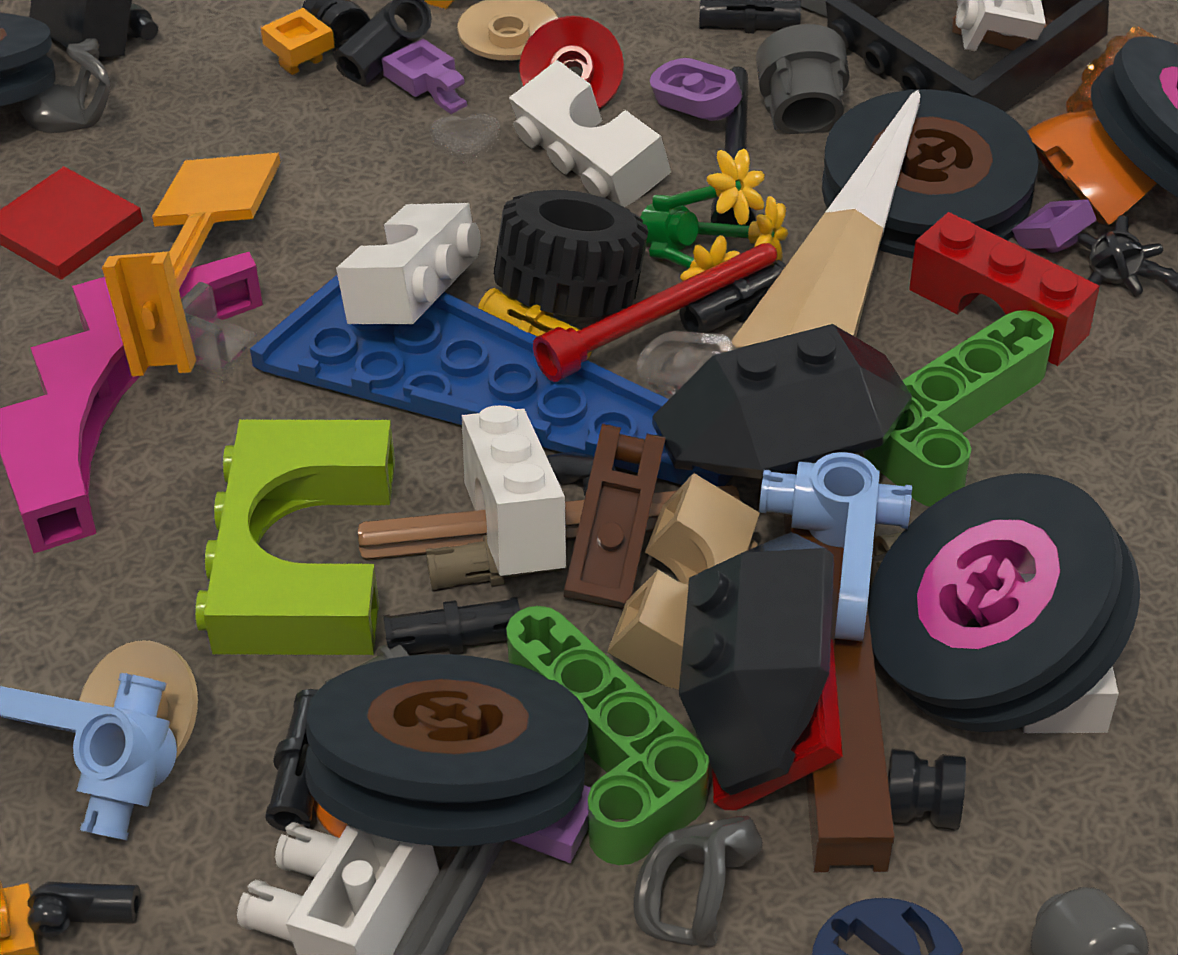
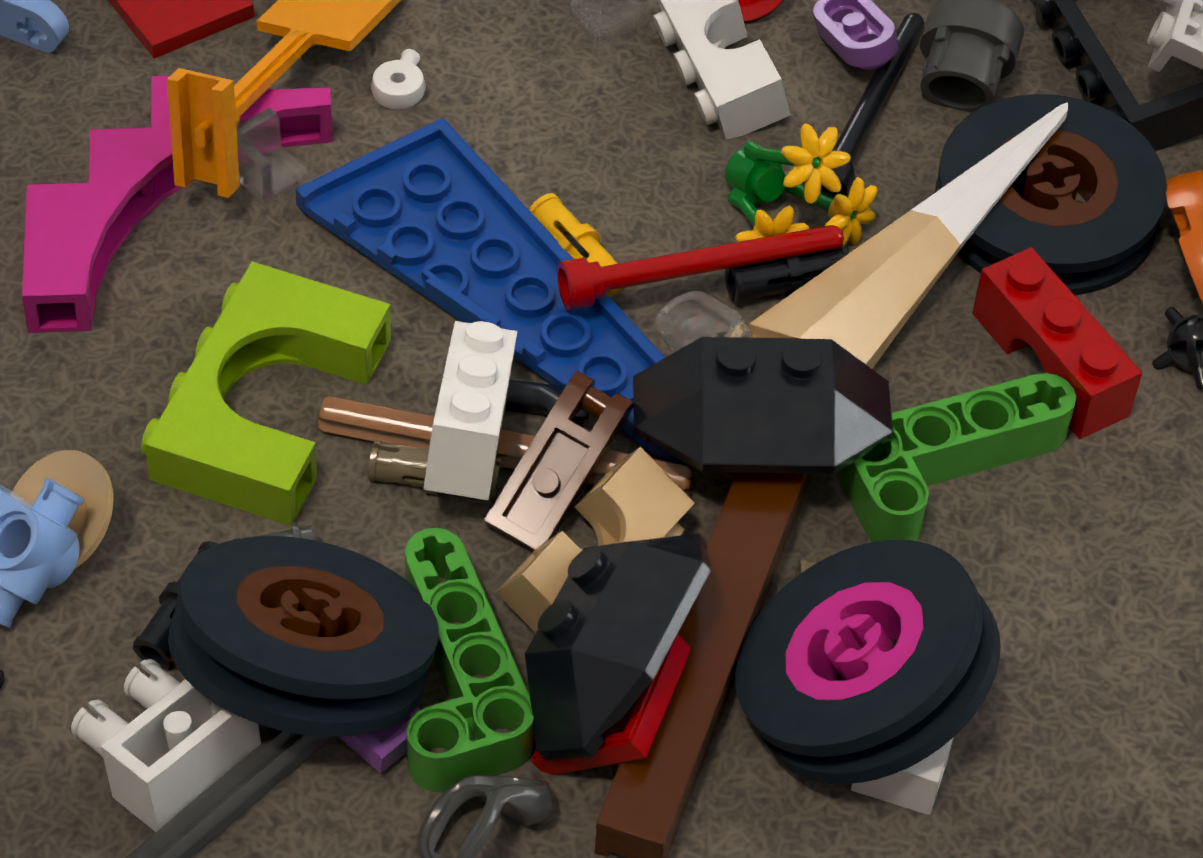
camera: 15 degrees right, 5 degrees up
(304, 238) = (399, 82): none -> white piece
(423, 257) = (455, 163): white arch -> none
(450, 626) = (365, 522): black pin -> none
(570, 253) = (637, 179): black tyre -> none
(839, 506) = (739, 511): light blue piece -> none
(922, 788) = (716, 808): black wheel -> none
(1055, 225) = (1150, 289): medium lavender plate -> none

